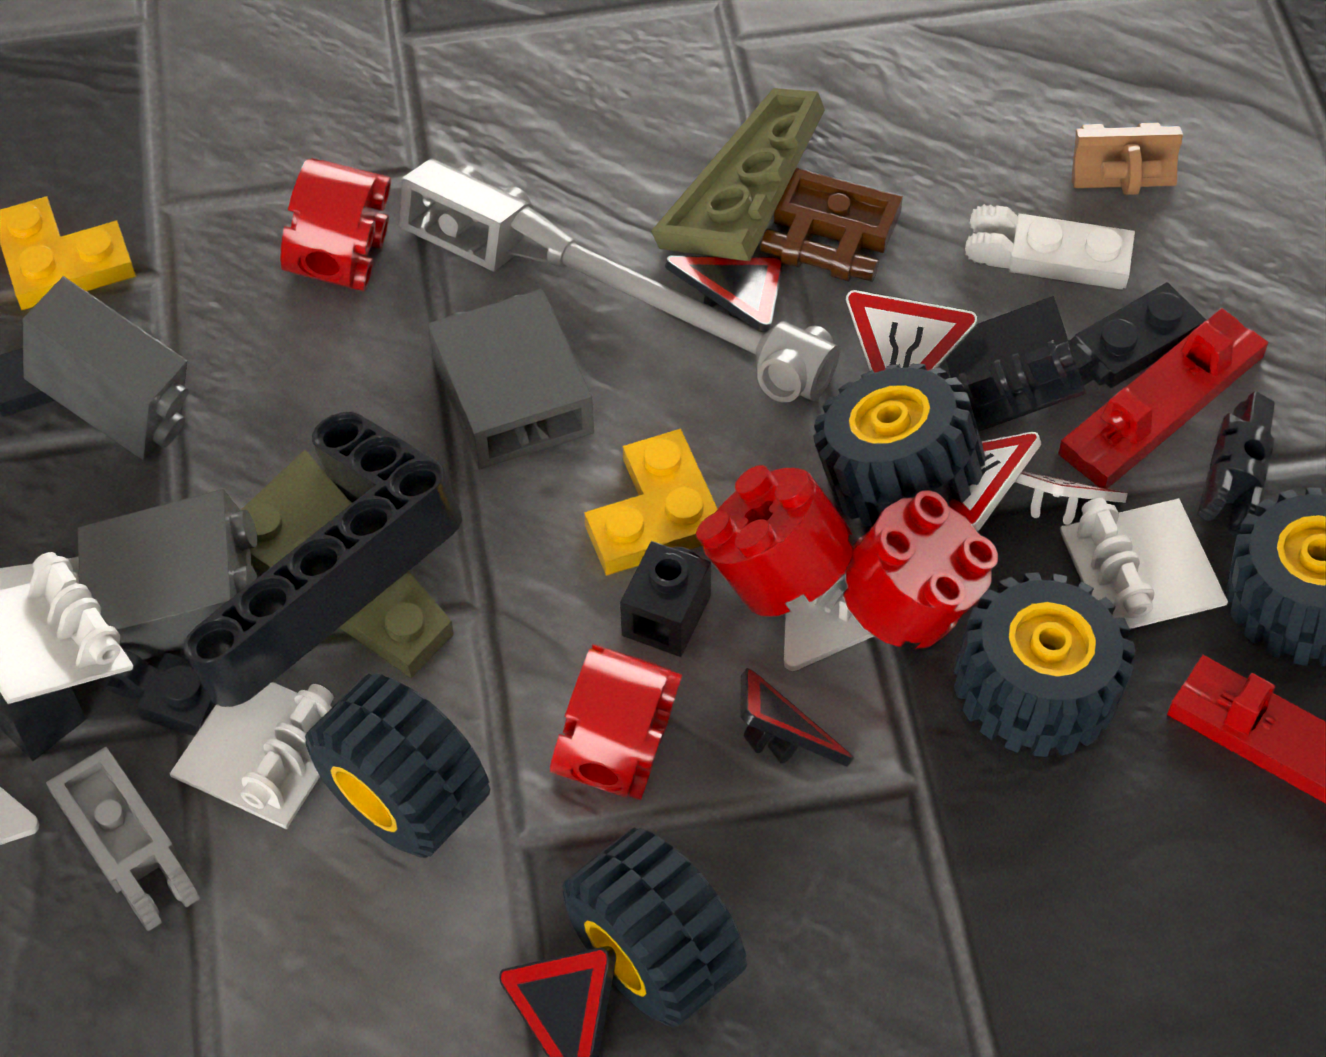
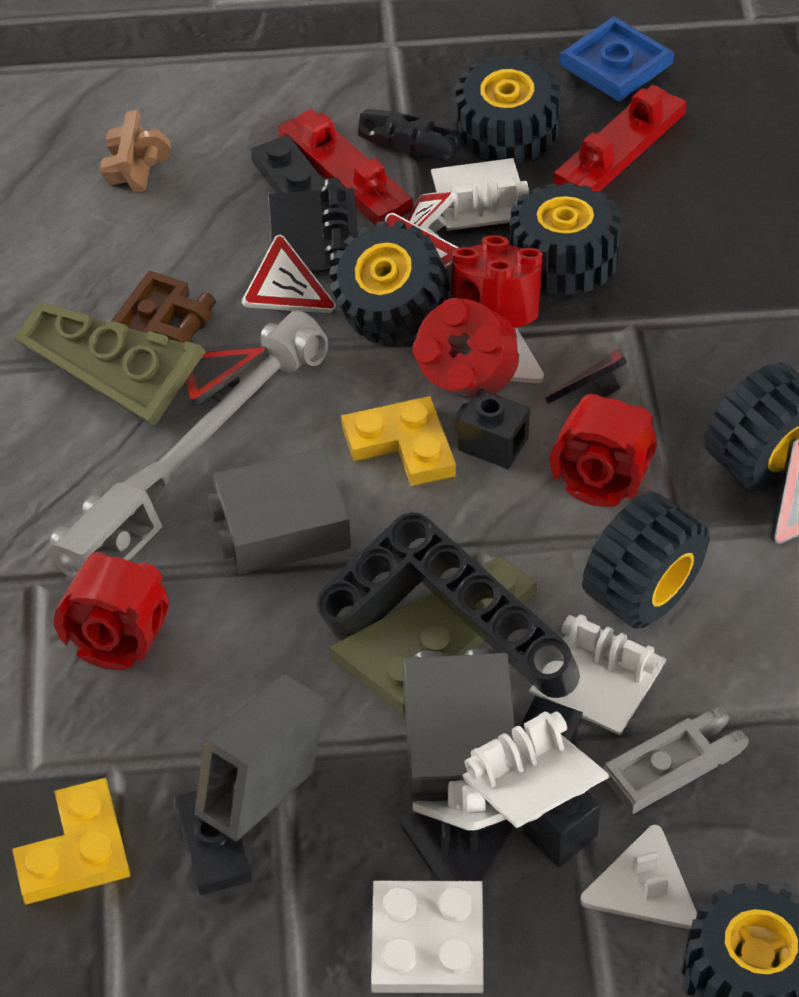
camera: 85 degrees left, 5 degrees down
(1050, 247) = (203, 204): white hinge -> none

